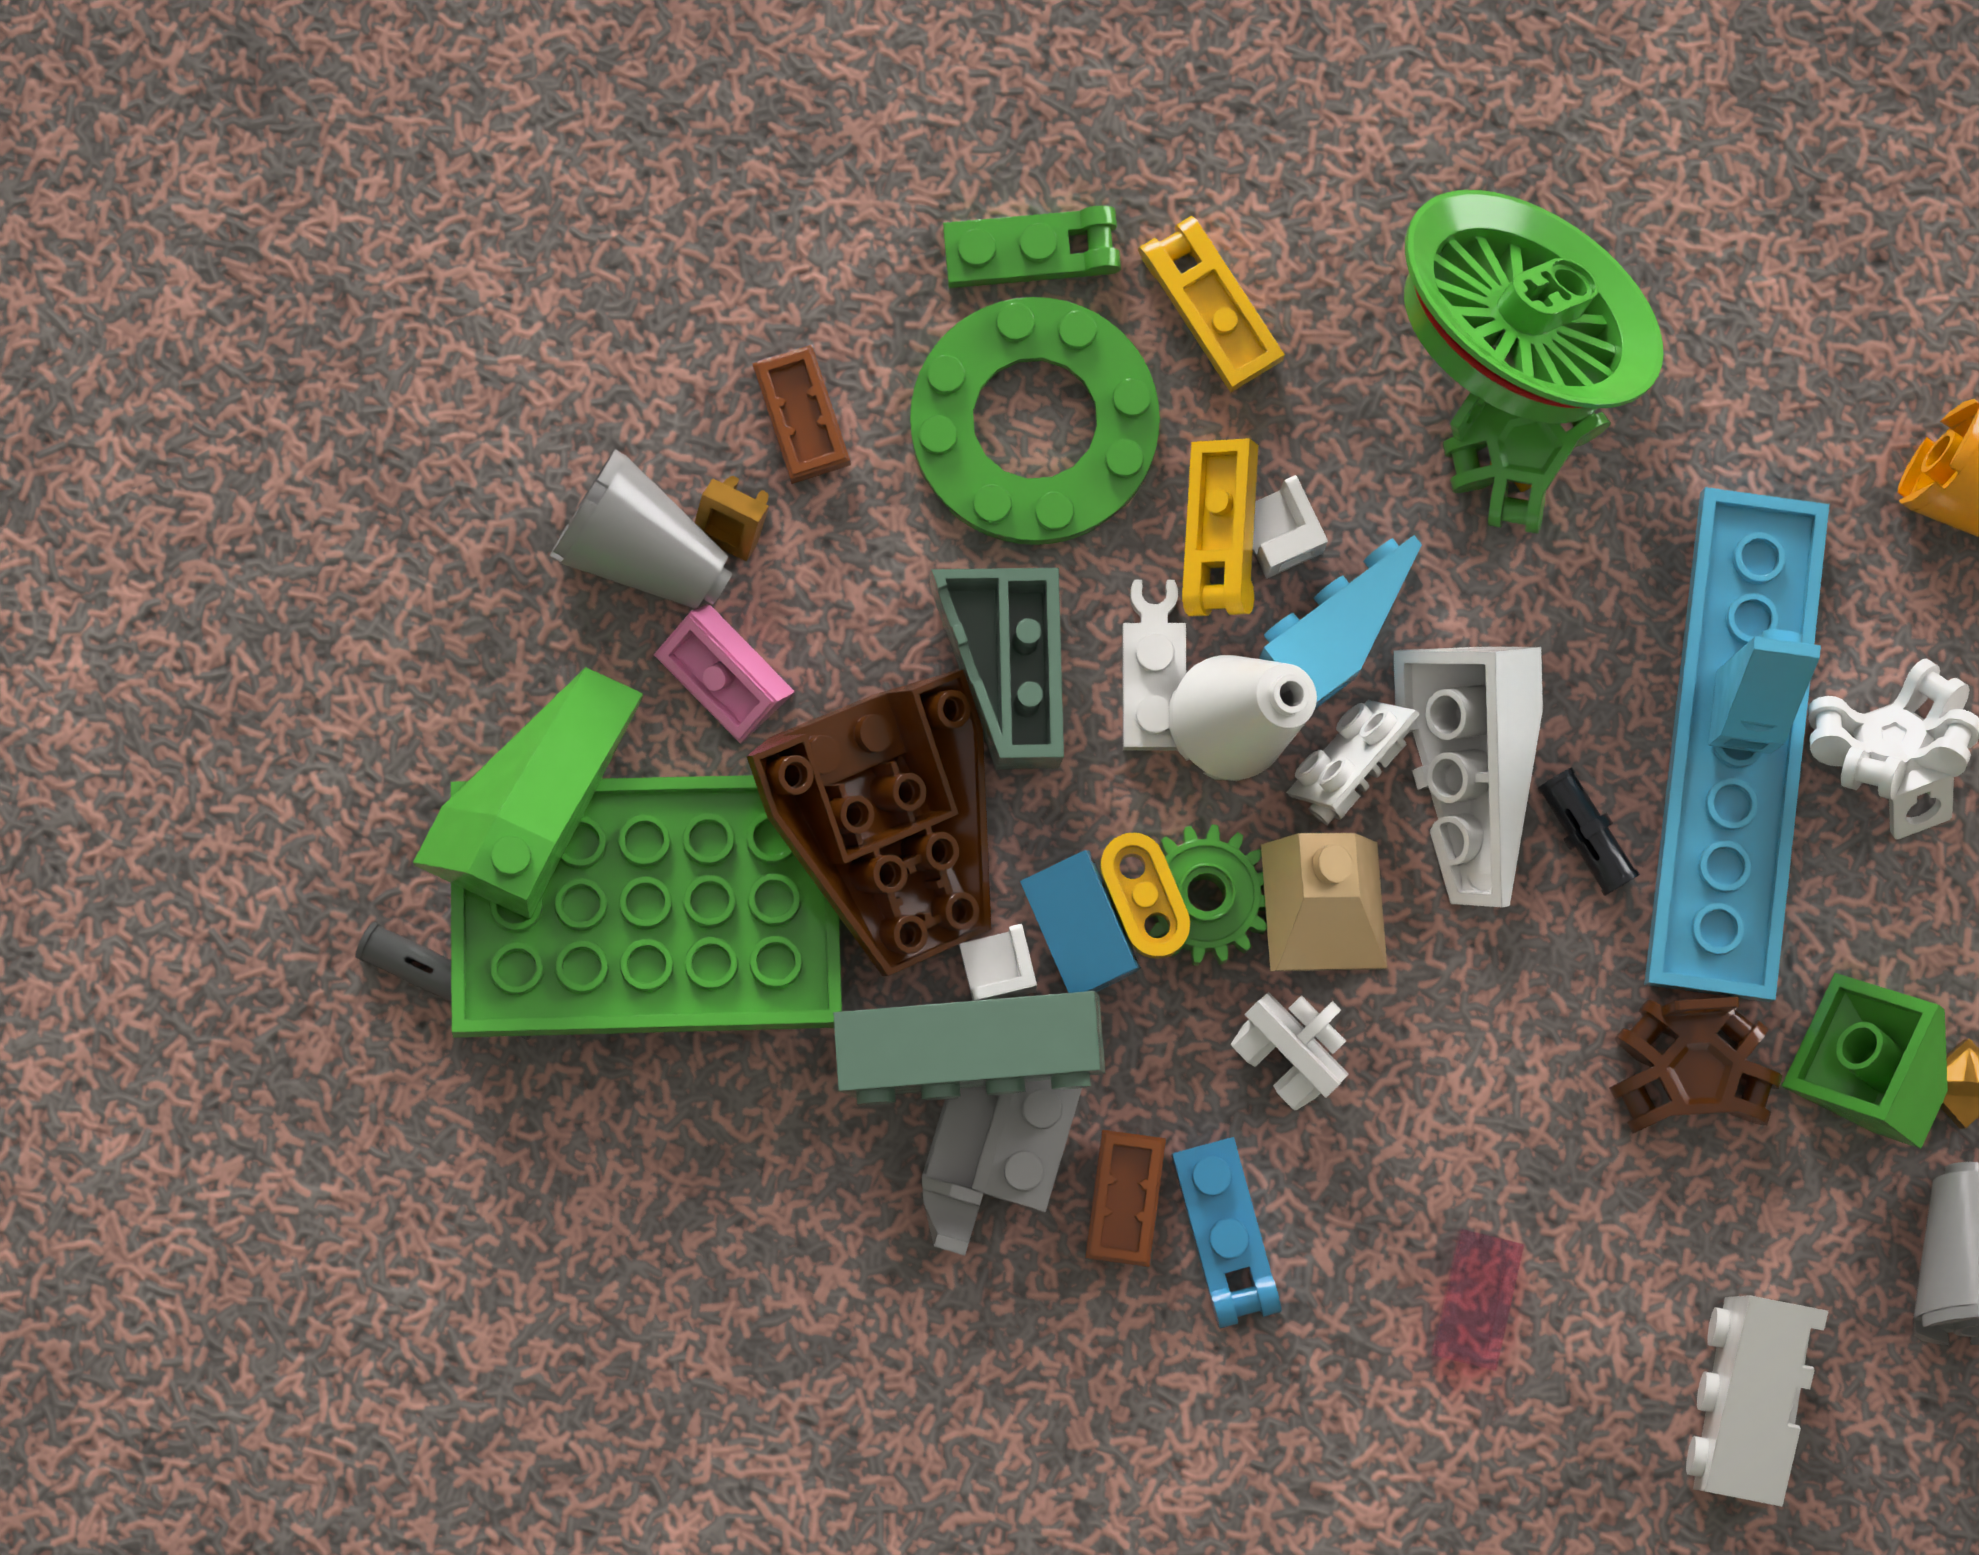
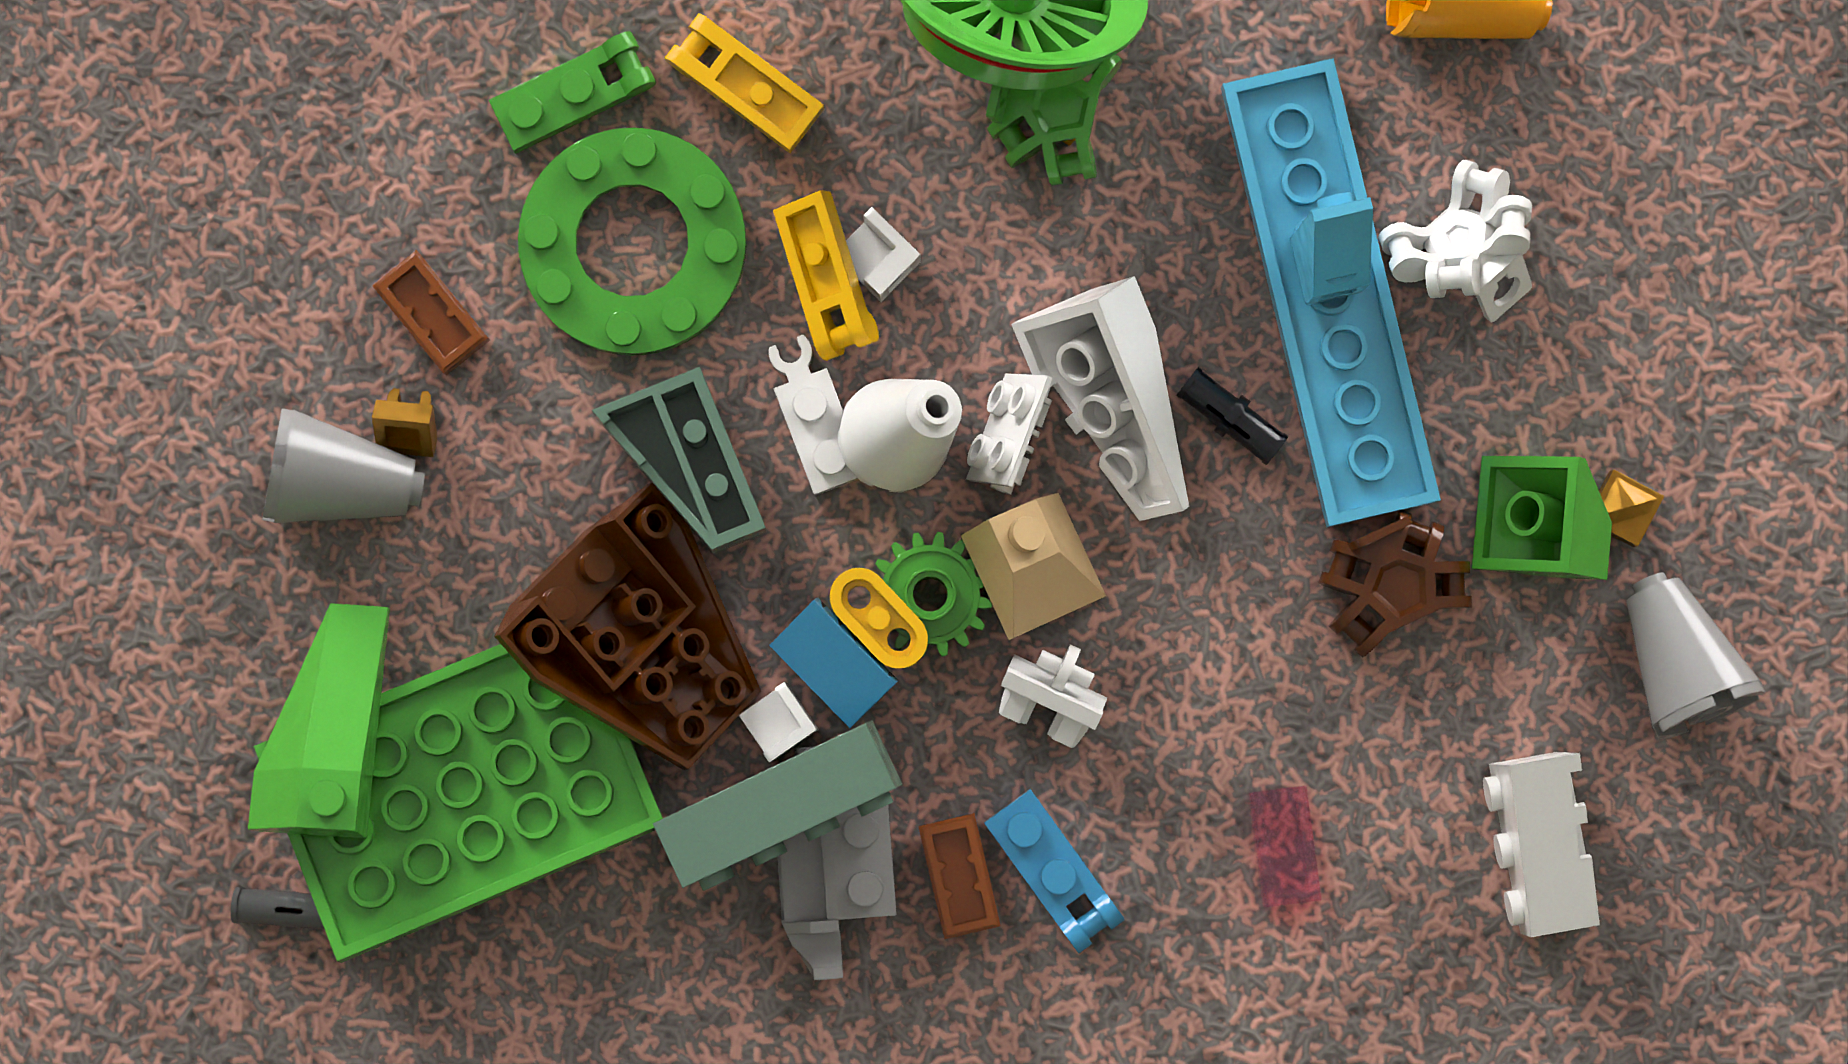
camera: 20 degrees left, 5 degrees up
(723, 672) = (450, 559): bright pink slope -> none
(1341, 631) = (958, 334): medium azure slope -> none

